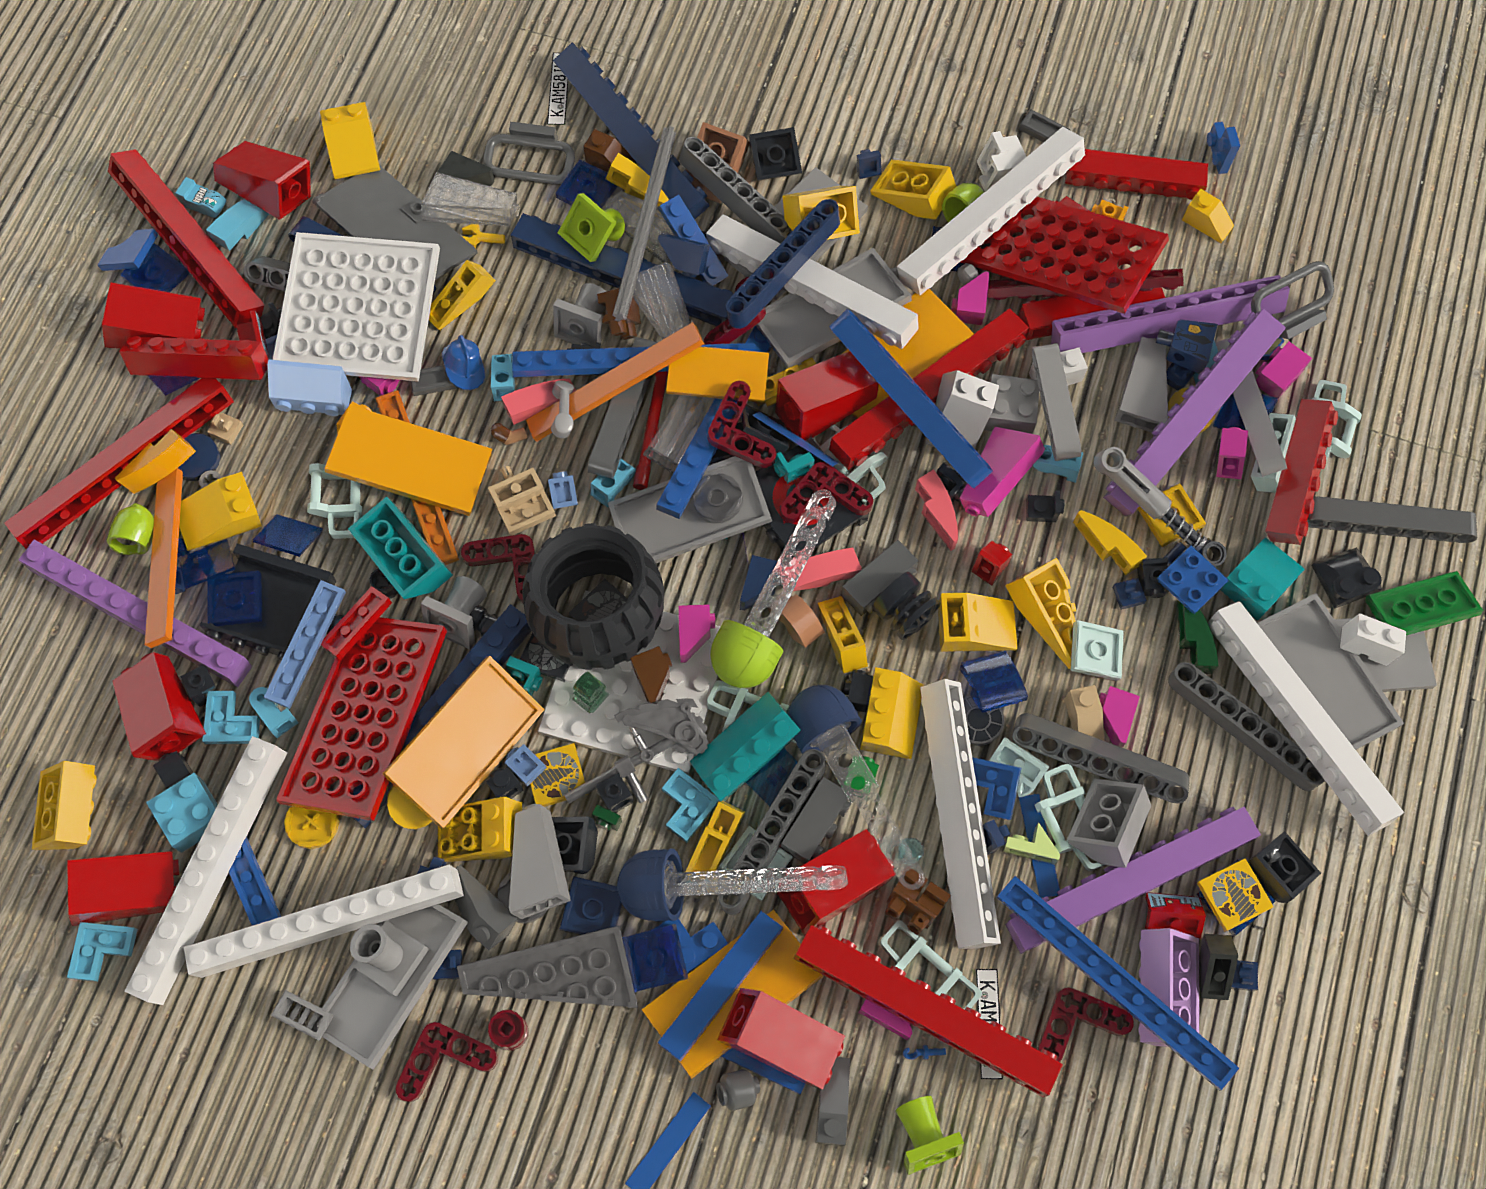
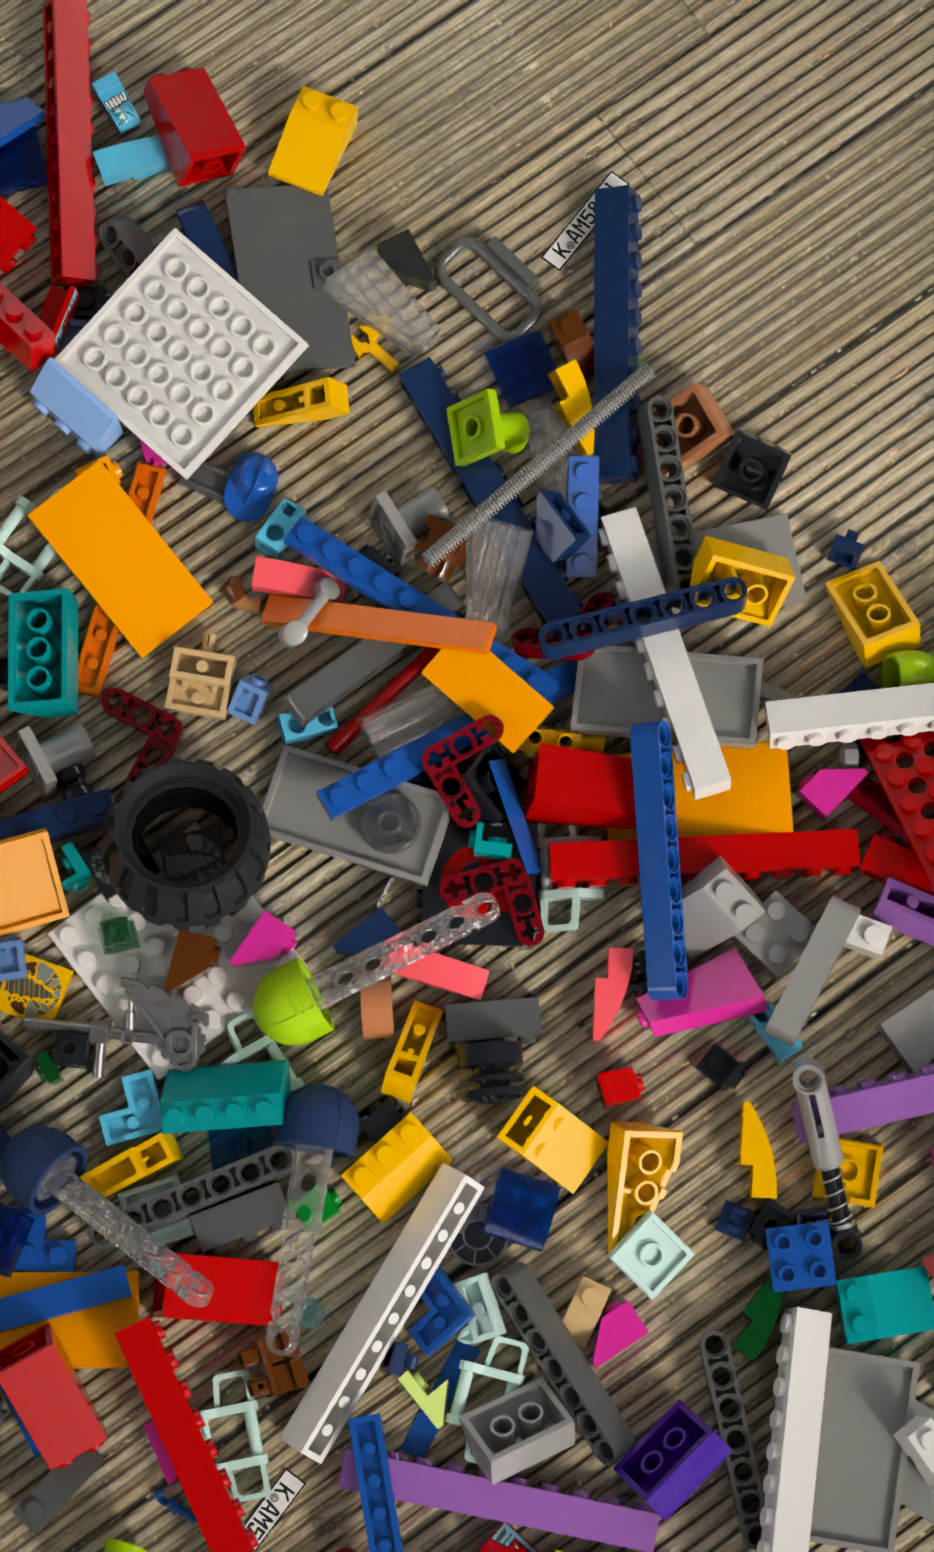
camera: 40 degrees right, 10 degrees up
(1223, 764) = (672, 1460): none -> dark purple brick

